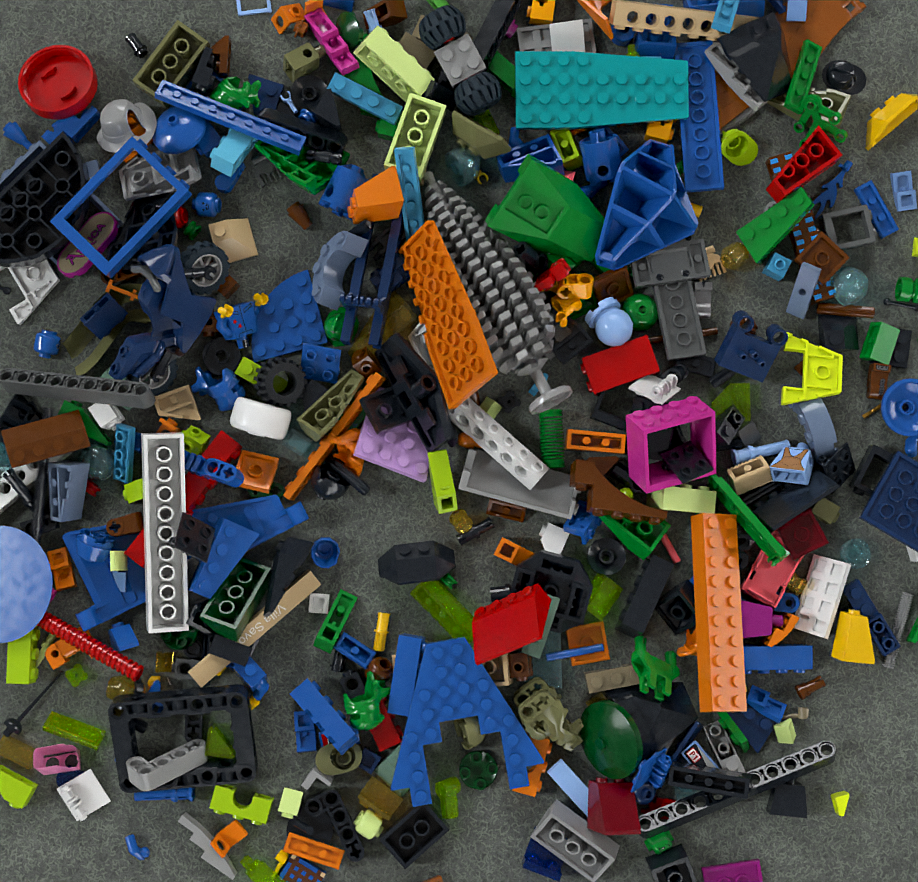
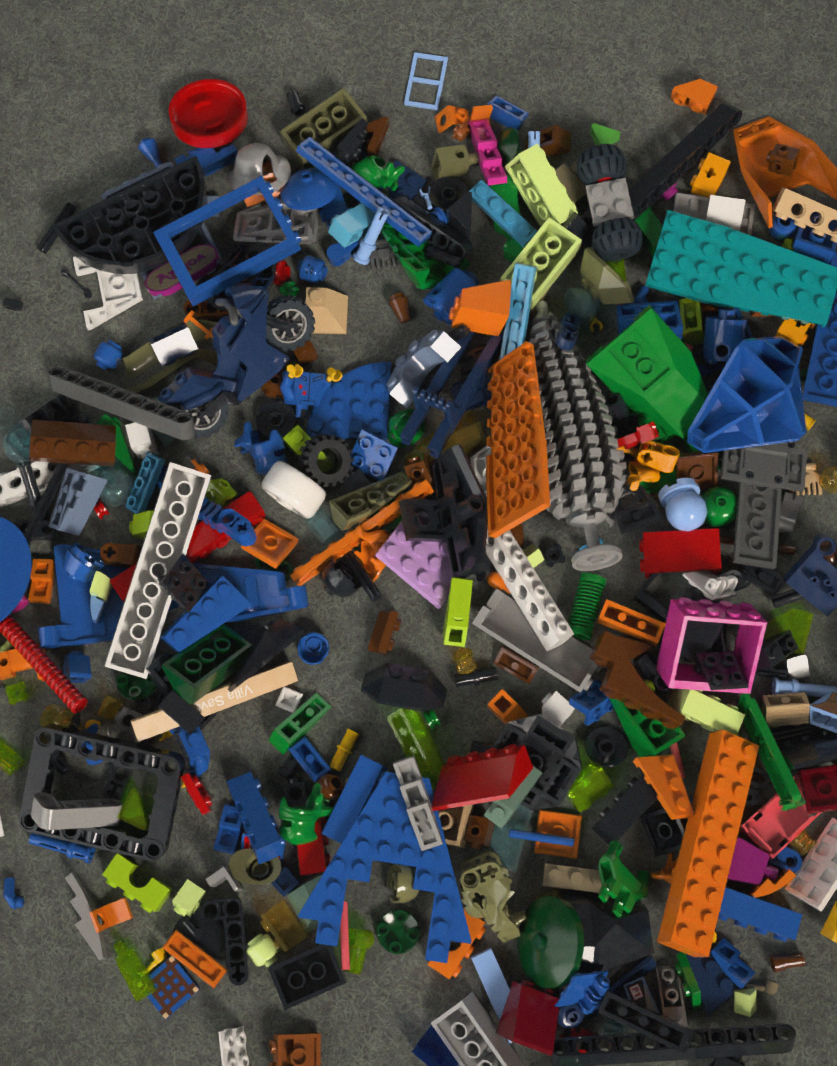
camera: 30 degrees right, 10 degrees down
(178, 404) = (215, 453): tan wing -> none
(250, 164) = (368, 243): none -> light blue pin
(268, 711) = (198, 793): none -> red plate
(382, 518) = (383, 633): none -> reddish brown bracket
(436, 794) = (344, 939): none -> coral bar
(457, 201) = (568, 331): none -> dark blue beam
(462, 663) = (417, 803): none -> light grey slope
(666, 570) = (666, 780): none -> orange wing

